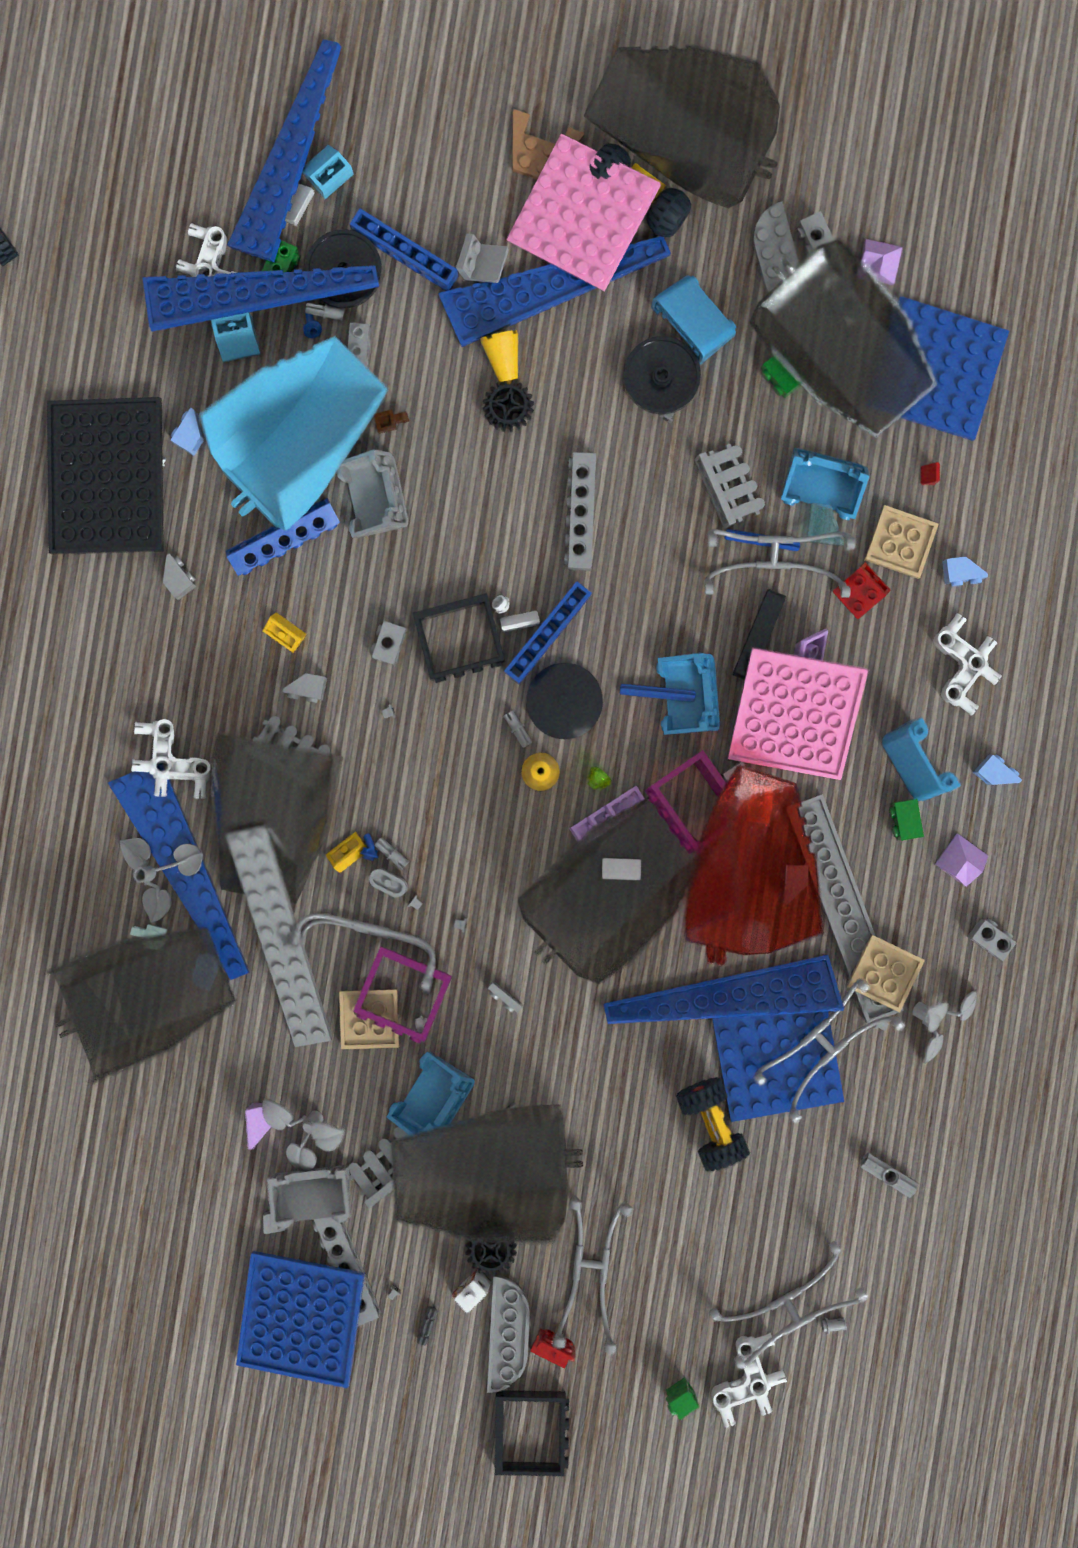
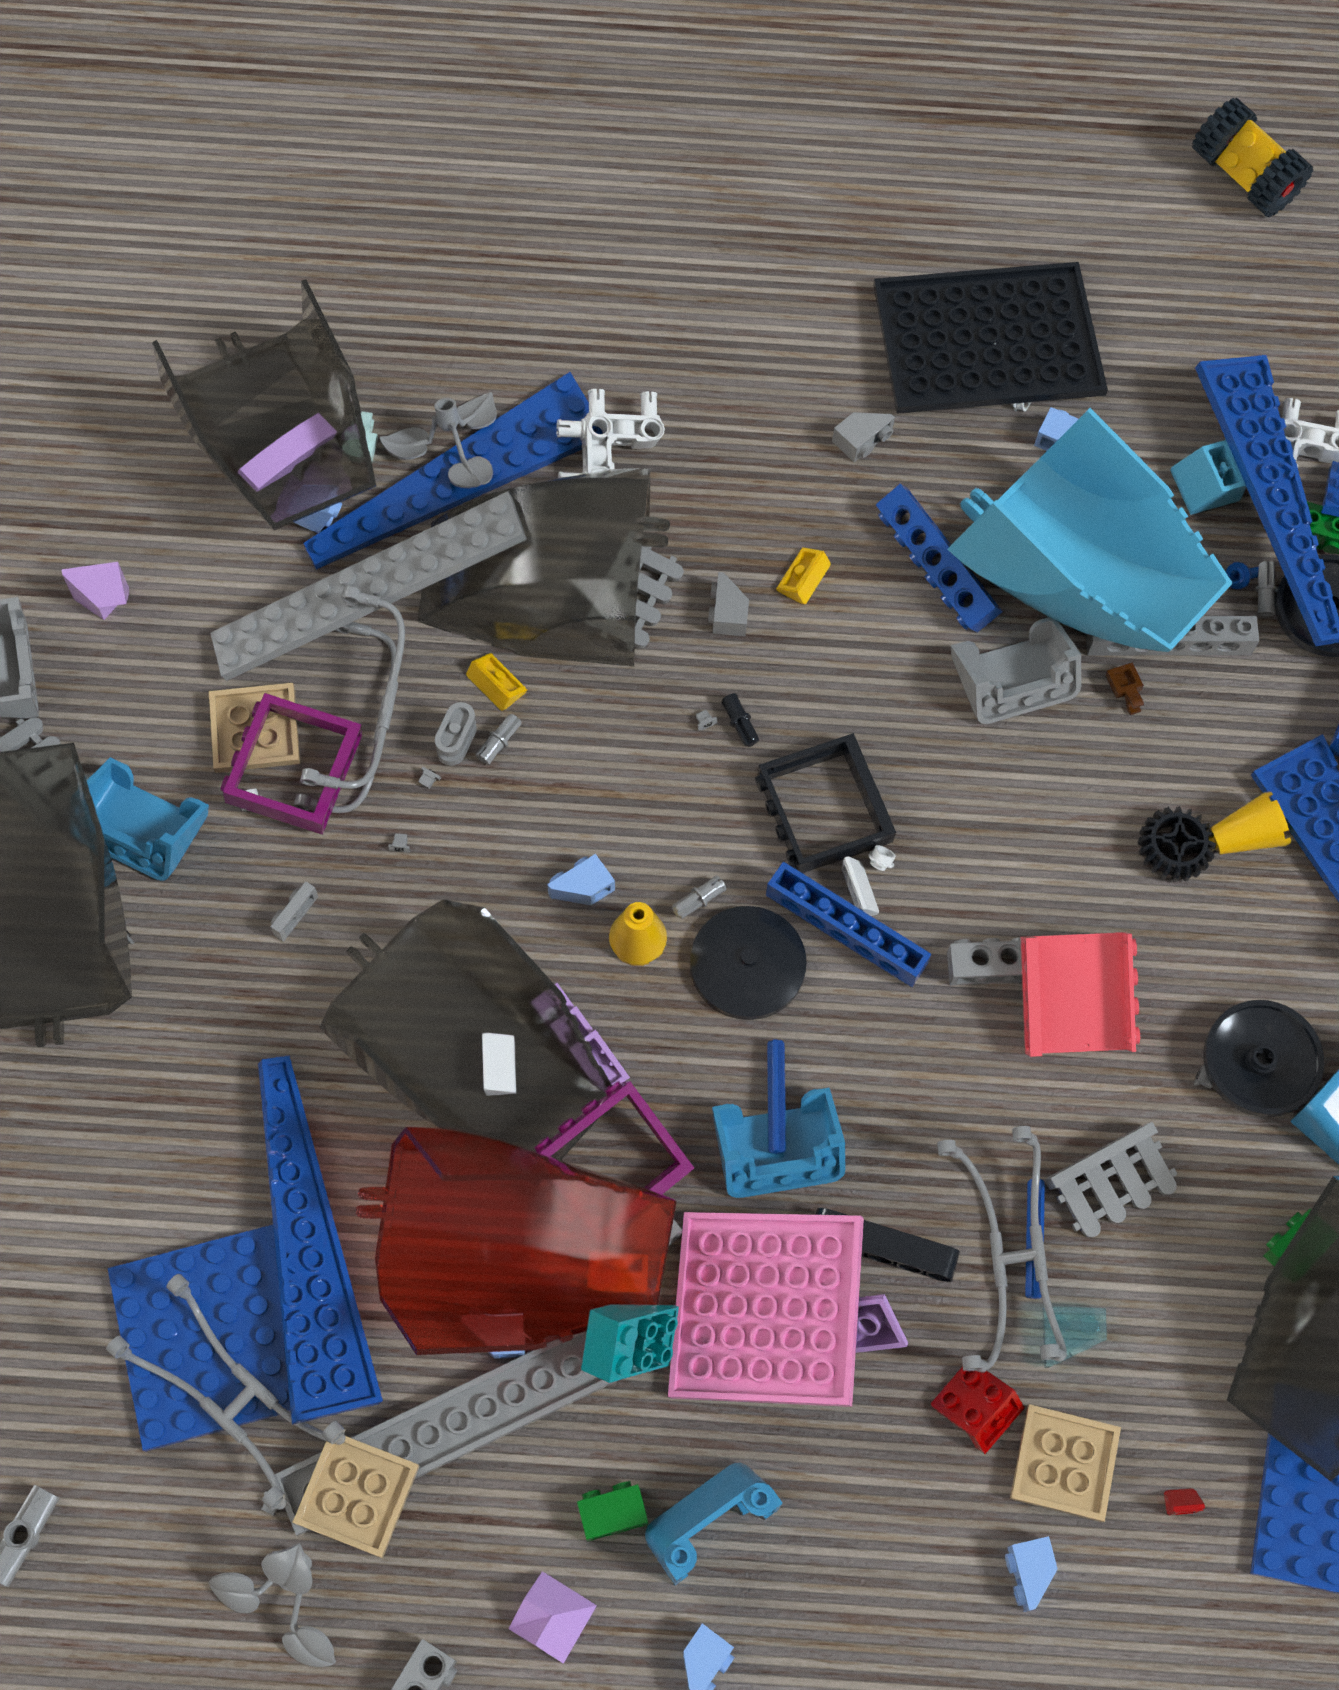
camera: 85 degrees right, 20 degrees down
(166, 988) = (286, 452): none -> lavender slope
(326, 1135) = (90, 657): light grey plant -> none
(369, 852) = (497, 707): blue plate -> none
(391, 654) = (812, 721): light grey brick -> none
(392, 688) = (740, 720): none -> black axle
(502, 803) = (584, 883): none -> light blue slope
(598, 779) = (634, 1018): clear neon green cone -> none
(608, 487) = (1079, 993): none -> coral panel
(724, 1148) = (63, 1254): black plate -> none
(812, 801) = (629, 1340): none -> teal slope
(826, 481) = (1143, 1323): dark azure windscreen -> none
(963, 654) = (863, 1593): white pin -> none

